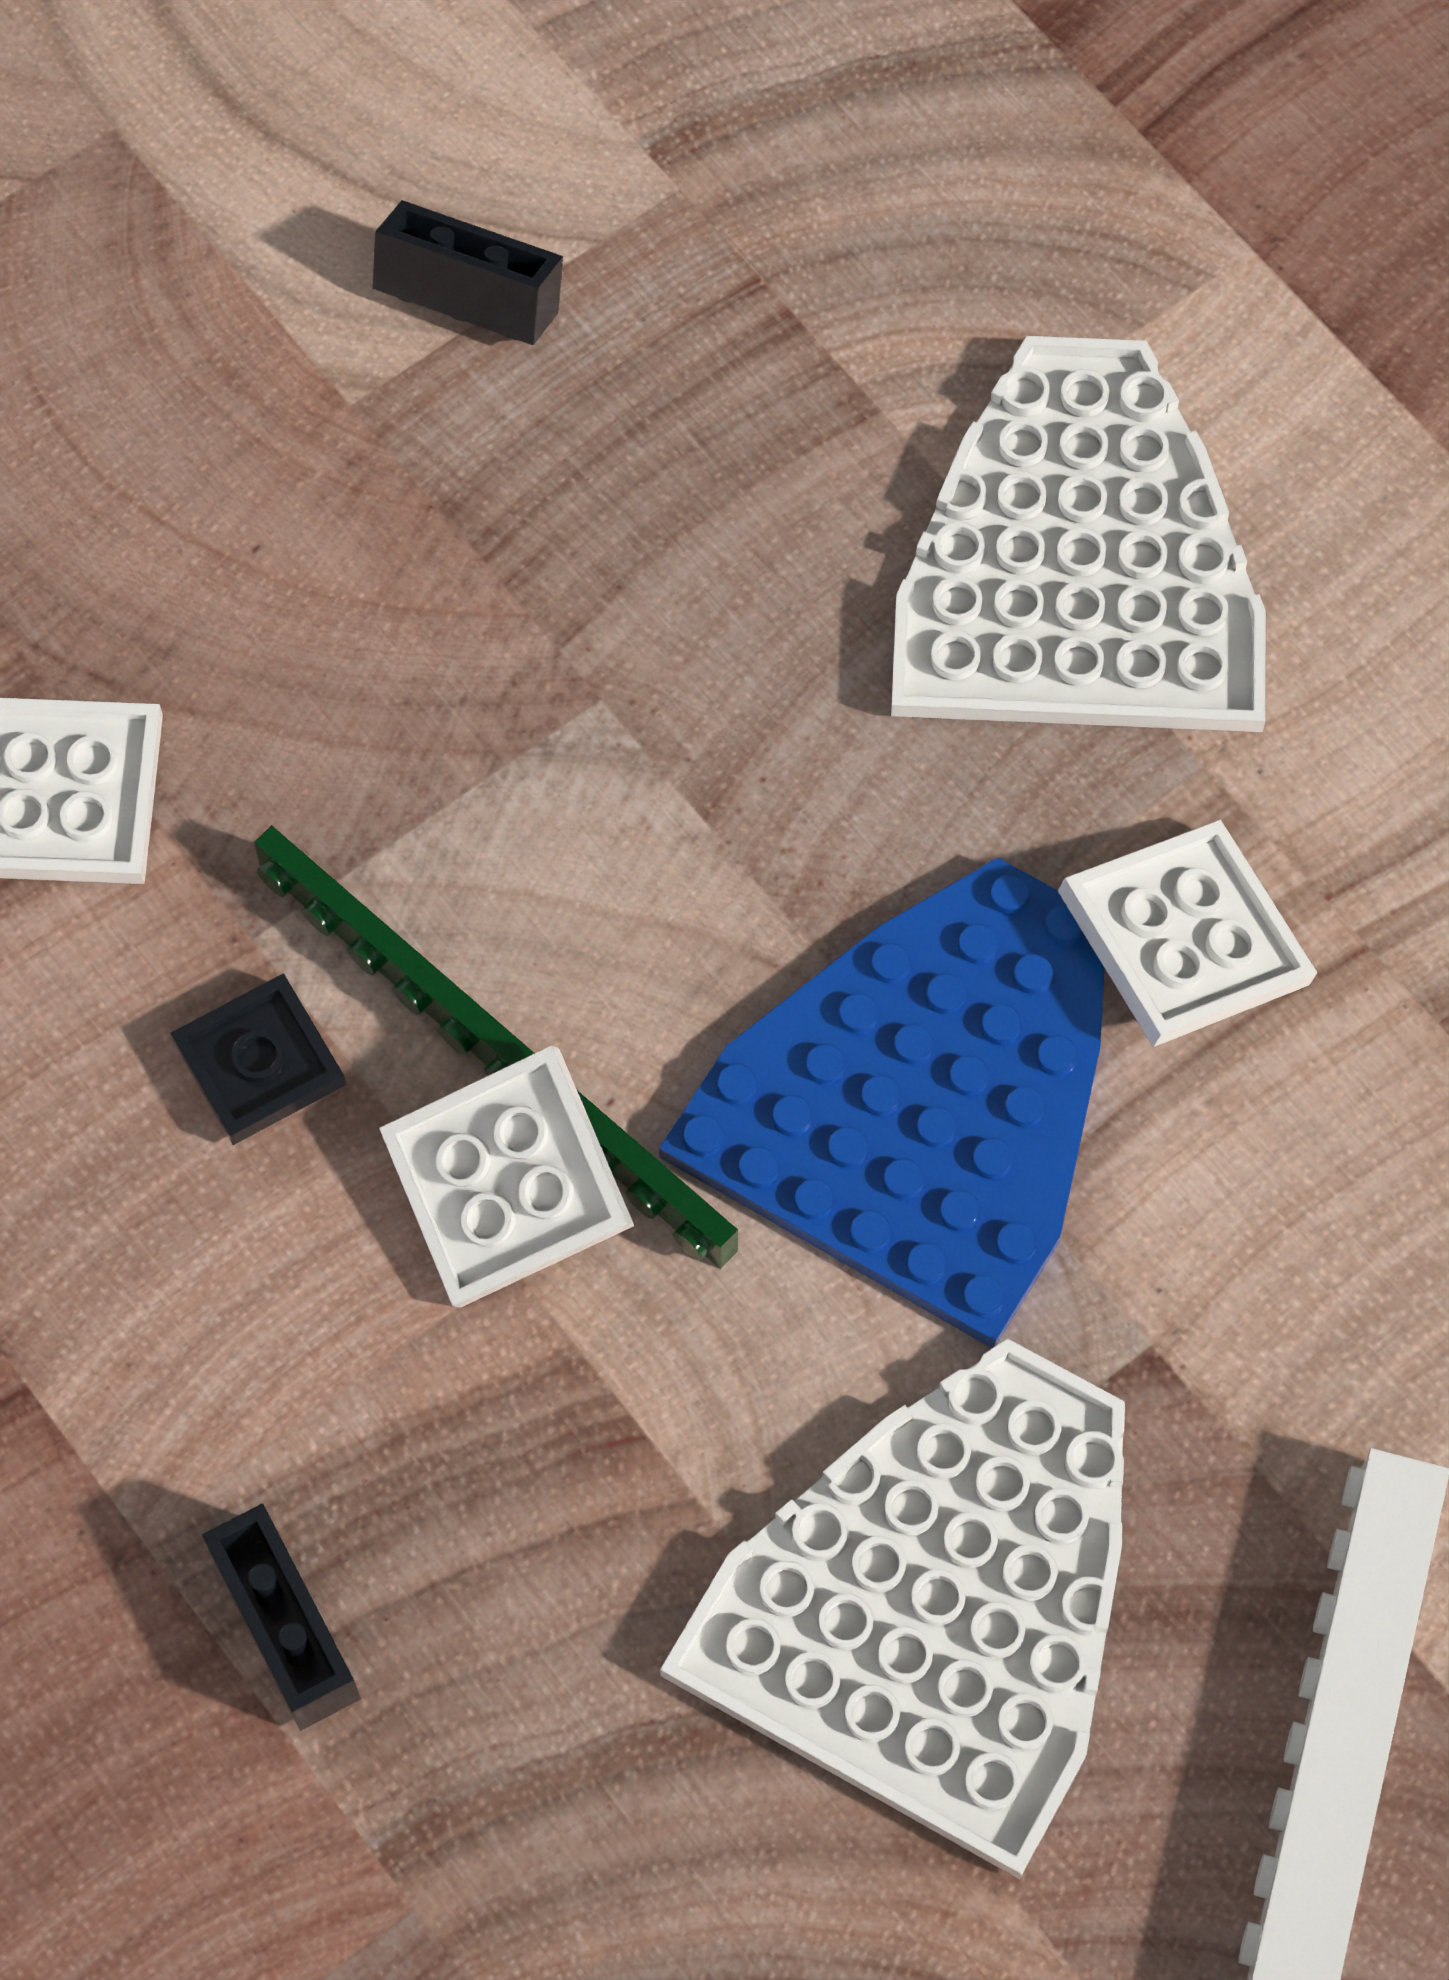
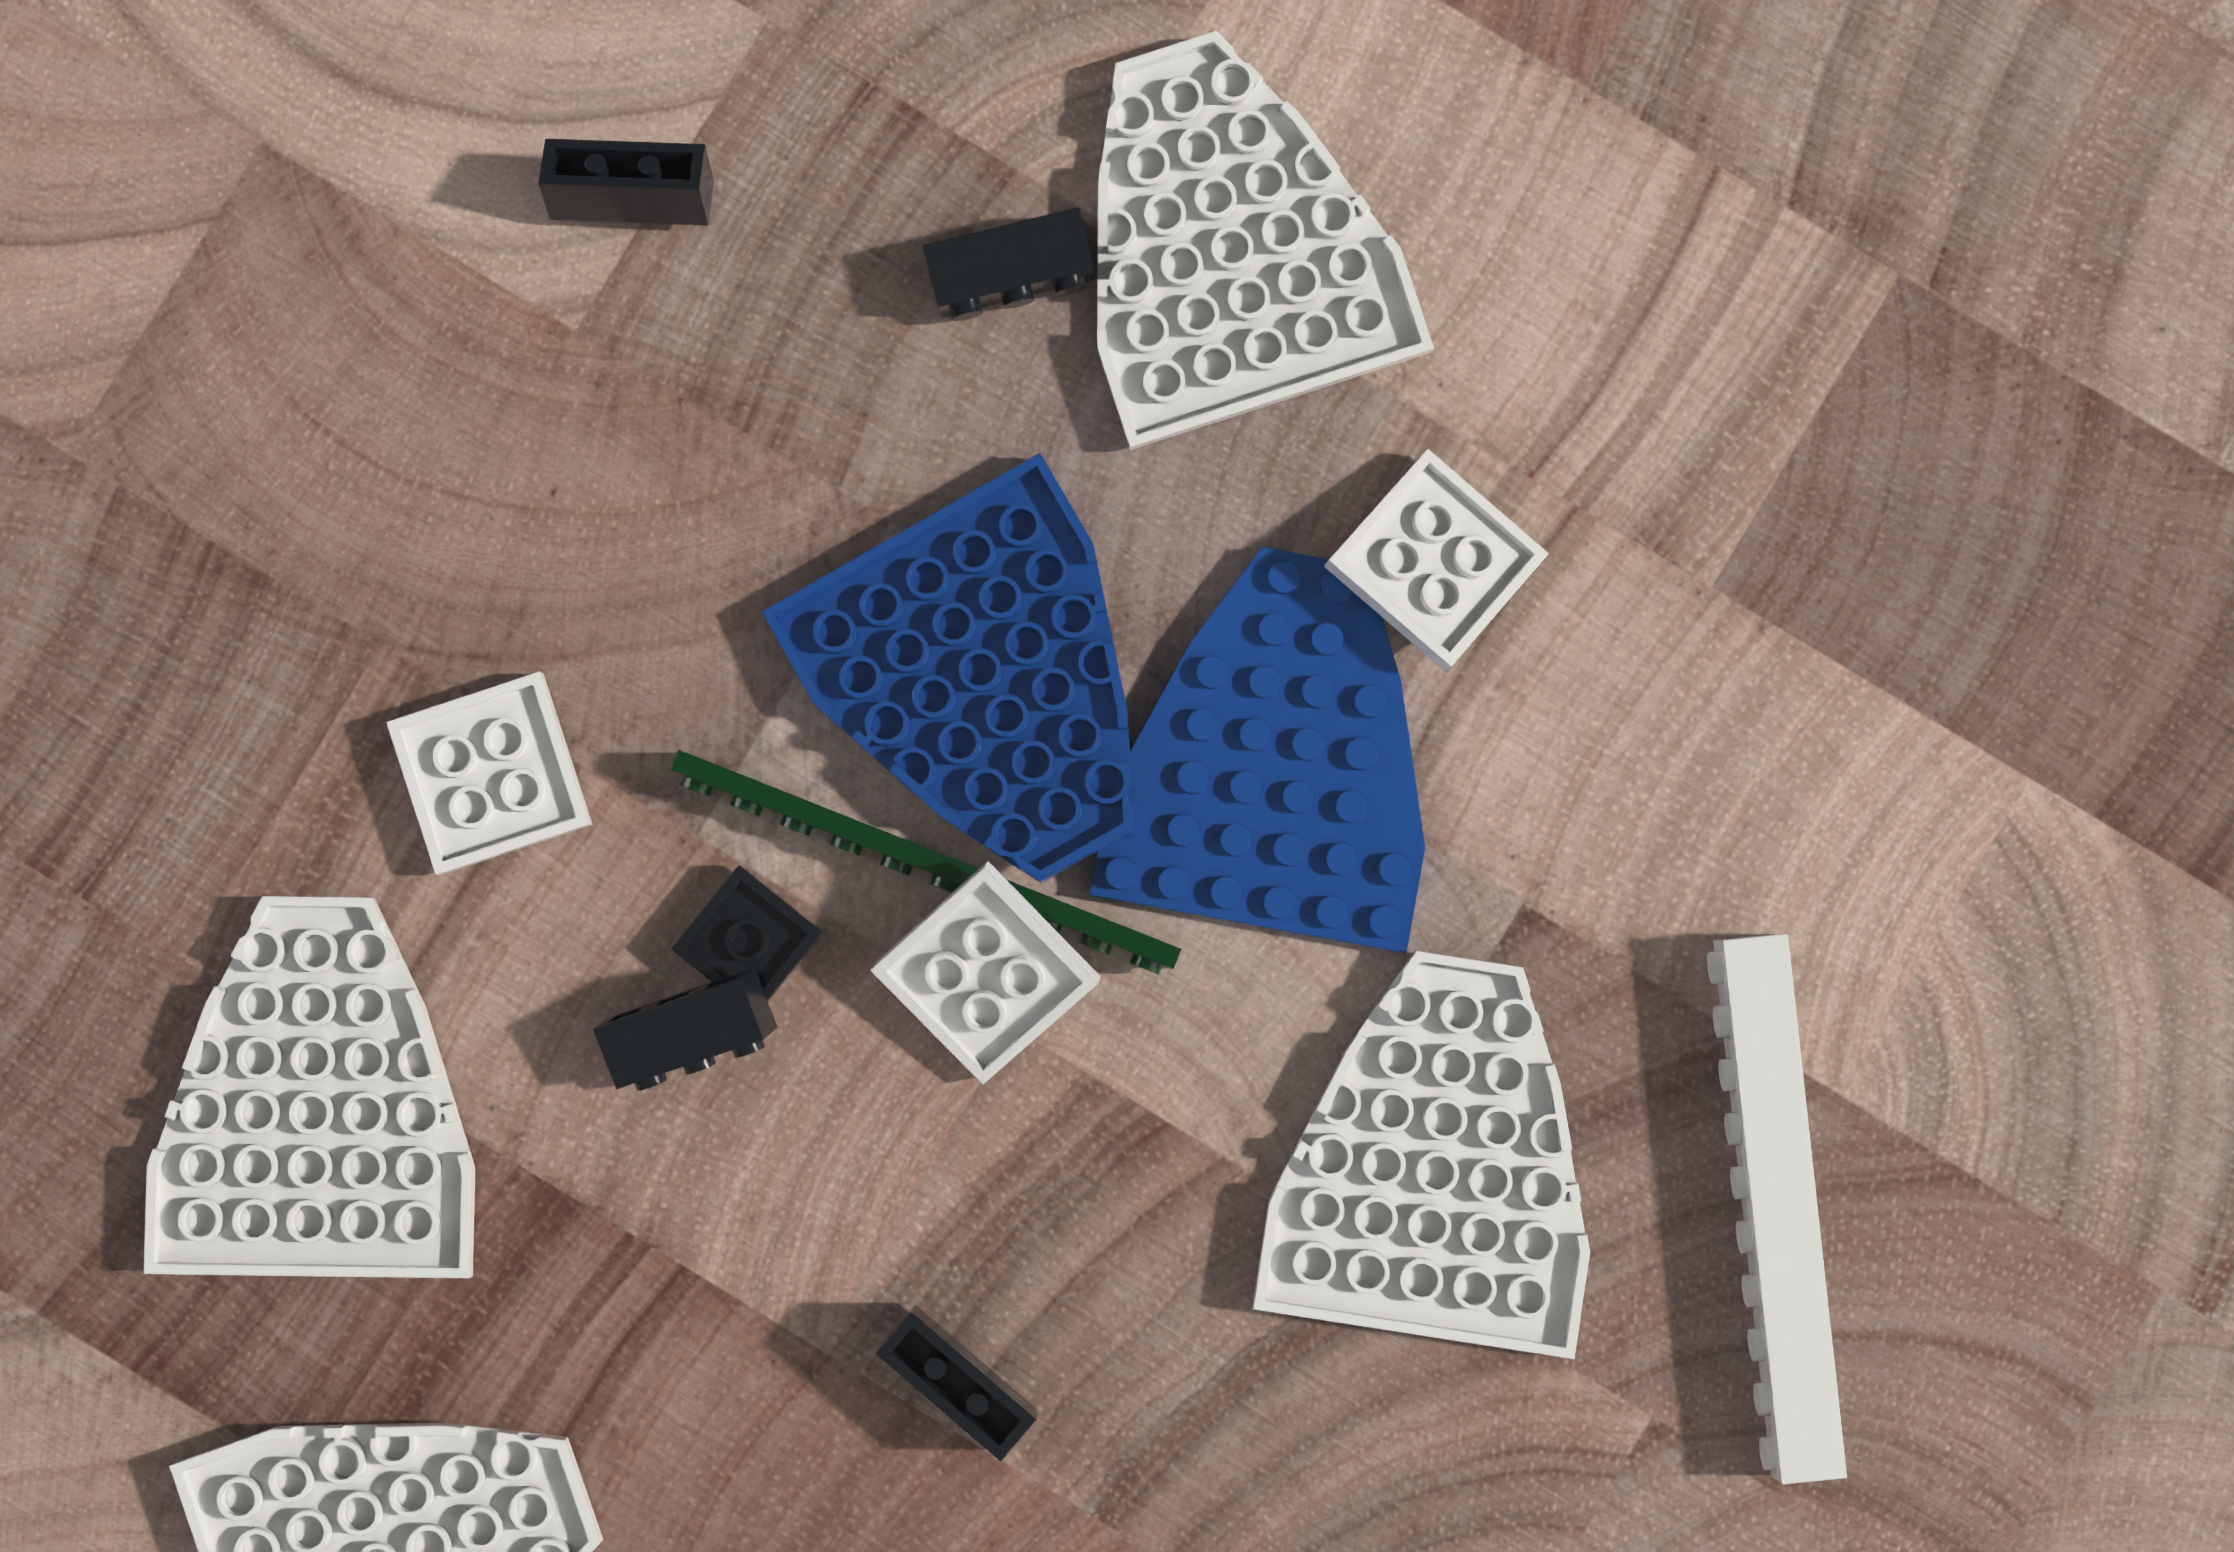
camera: 25 degrees left, 20 degrees up
(148, 1116) = (686, 1030): none -> black brick
(634, 873) = (980, 670): none -> blue wing
(835, 486) = (1010, 264): none -> black brick

